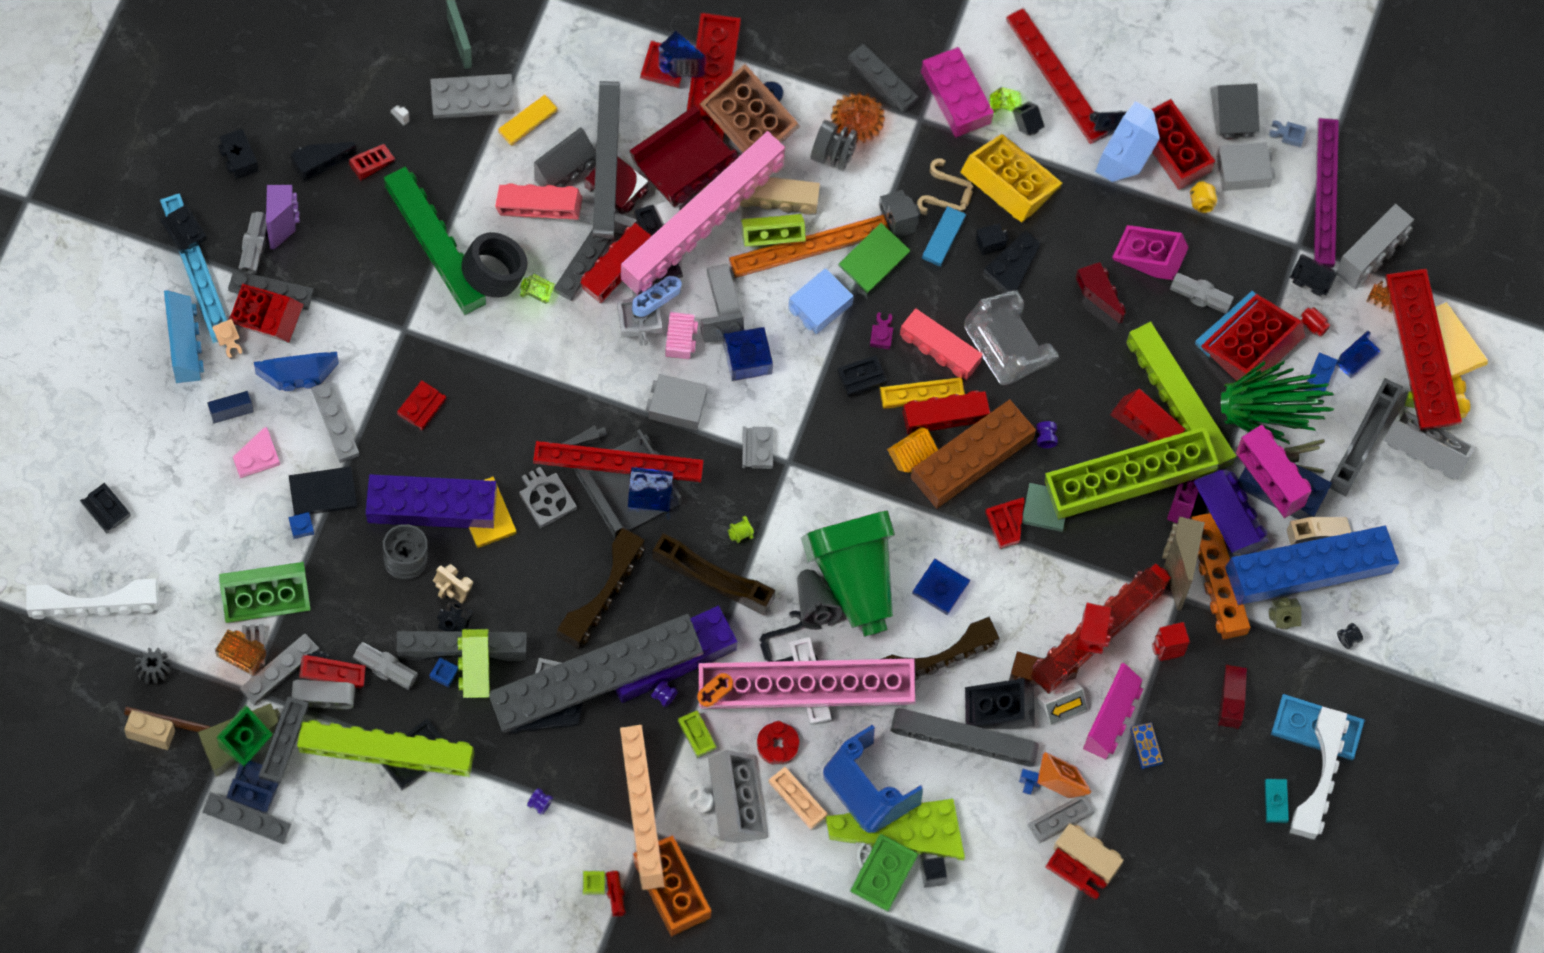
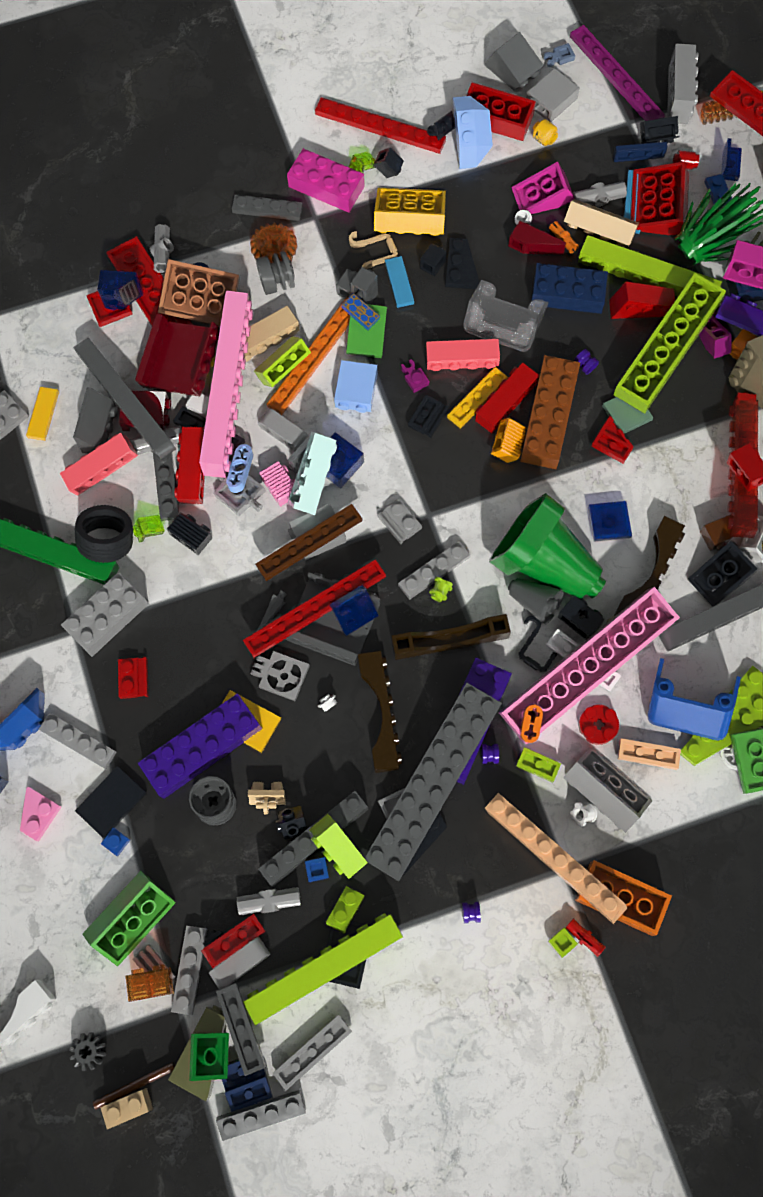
camera: 30 degrees left, 5 degrees up
(324, 804) = (312, 1052): none -> light grey plate
(440, 334) = (105, 614): none -> light grey brick
(440, 720) = (345, 909): none -> lime plate
(565, 548) = (327, 702): none -> white plate
(567, 320) = (190, 533): none -> black brick
(660, 403) = (308, 542): none -> reddish brown plate
(711, 346) = (312, 473): none -> light aqua wedge
(753, 45) = (161, 248): none -> light grey piece
(755, 510) = (436, 567): none -> light grey plate
(841, 633) = (586, 626): none -> black brick
(880, 237) = (360, 311): none -> blue tile
(1092, 357) = (570, 287): none -> dark blue brick
(1110, 262) = (524, 216): none -> white plate
(1132, 308) = (560, 233): none -> orange pin
(1176, 320) = (601, 222): none -> tan brick
(1277, 281) = (640, 152): none -> dark blue tile

